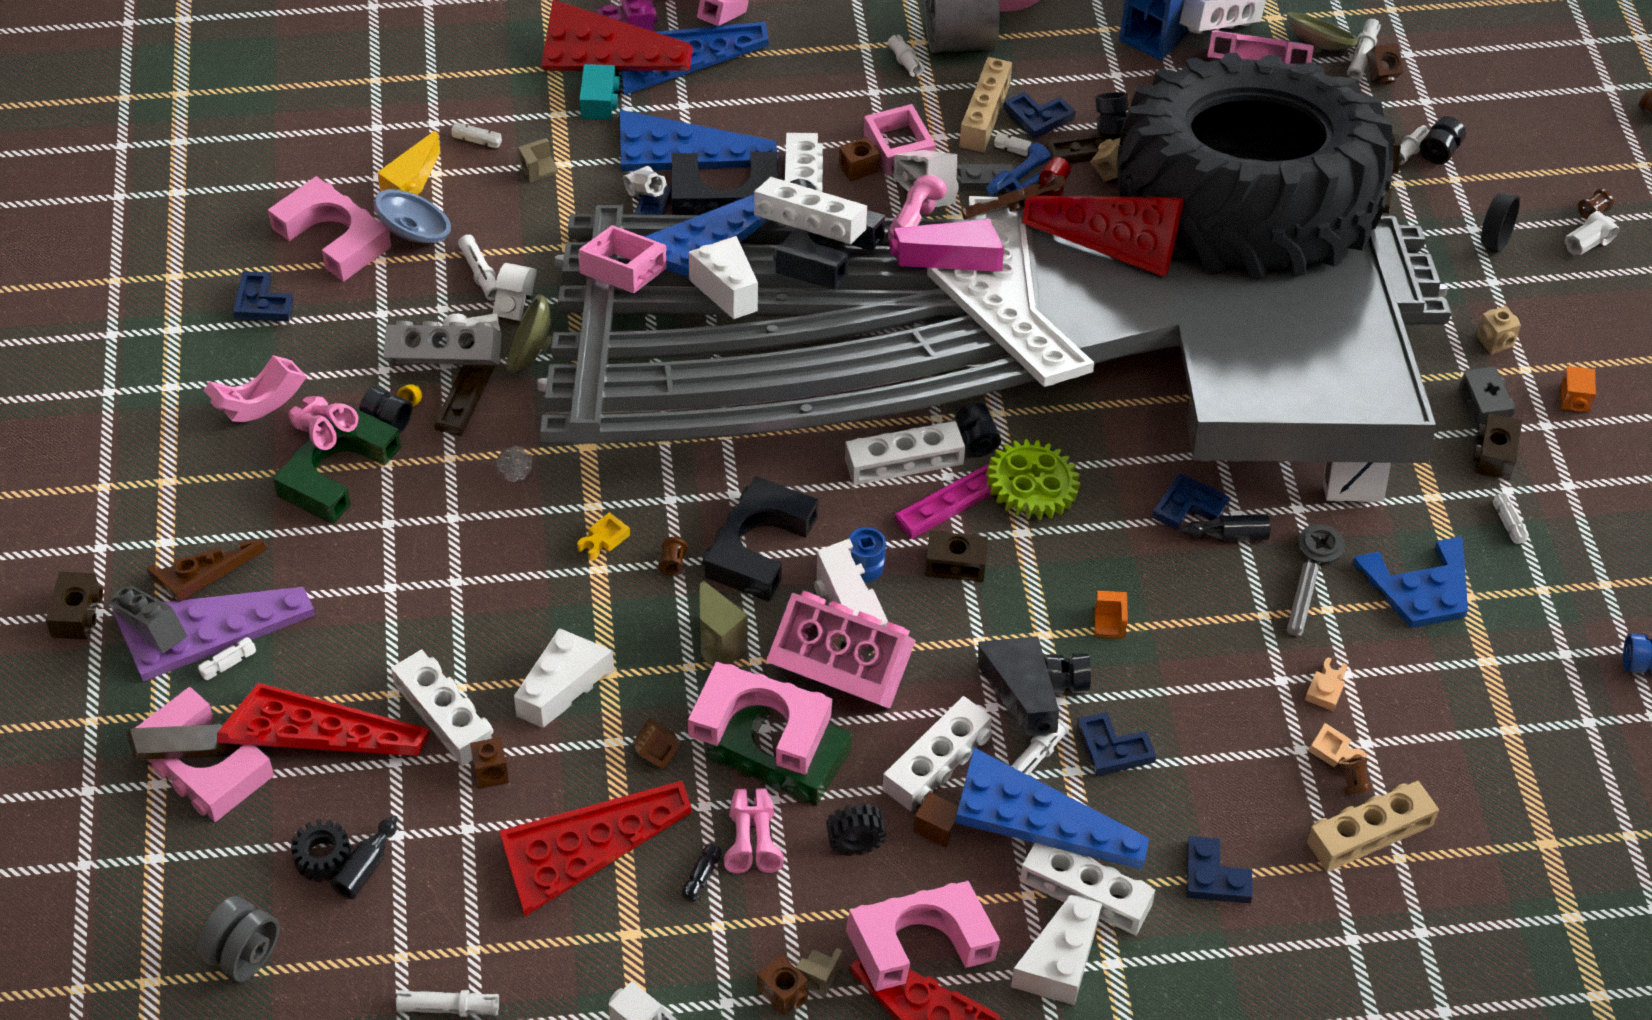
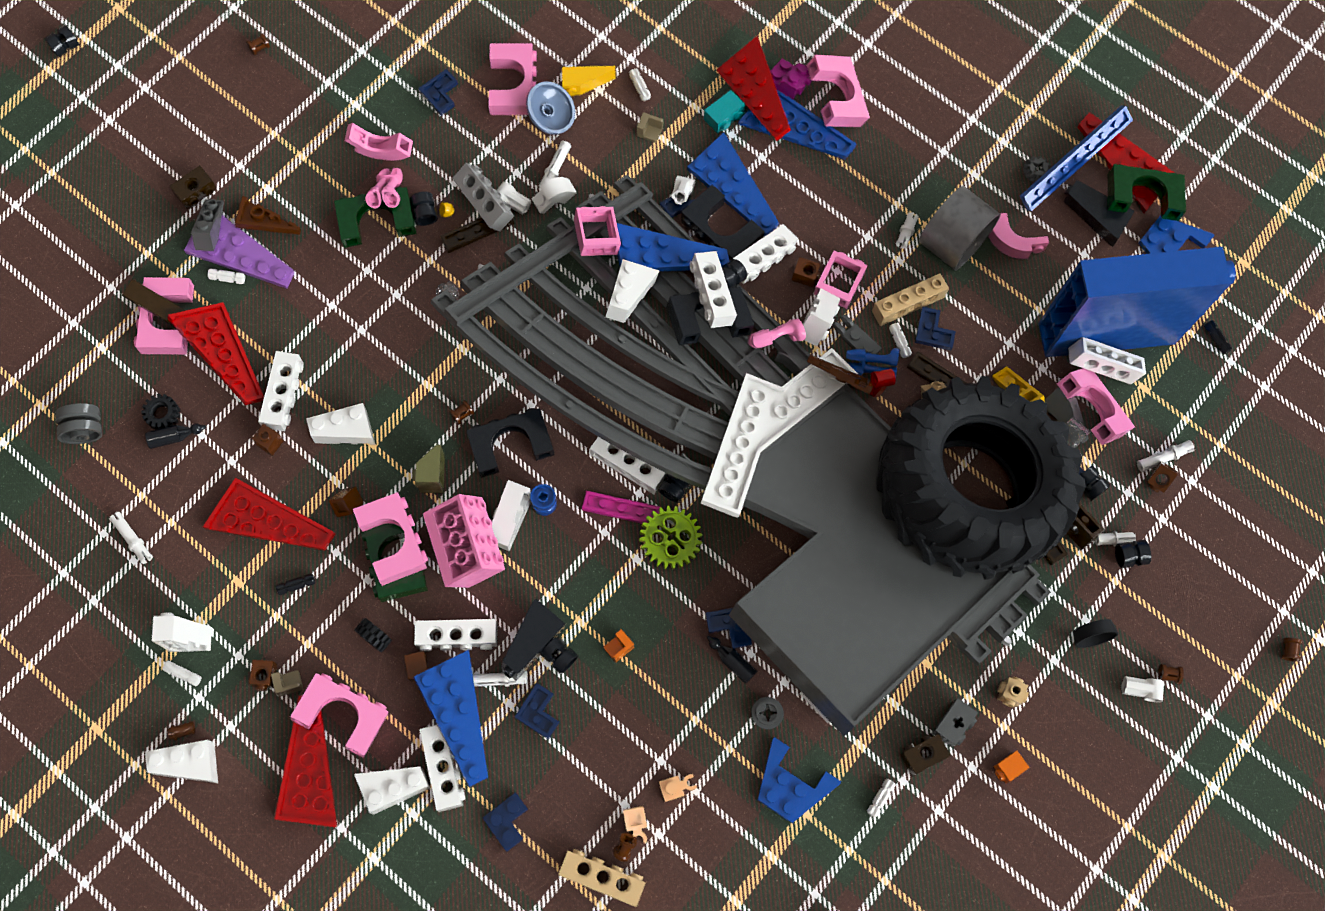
camera: 45 degrees right, 20 degrees up
(530, 336) = (524, 232): olive dish -> none
(605, 533) = (446, 371): yellow plate -> none
(739, 856) = (341, 574): bright pink piece -> none
(949, 246) = (766, 373): dark pink slope -> none
(956, 556) = (590, 552): dark brown brick -> none
(1112, 112) = (967, 367): black wheel -> none
(1124, 228) = (862, 450): red wing -> none
(1302, 599) = (721, 731): light grey axle -> none
(1320, 33) = (1151, 423): olive dish -> none

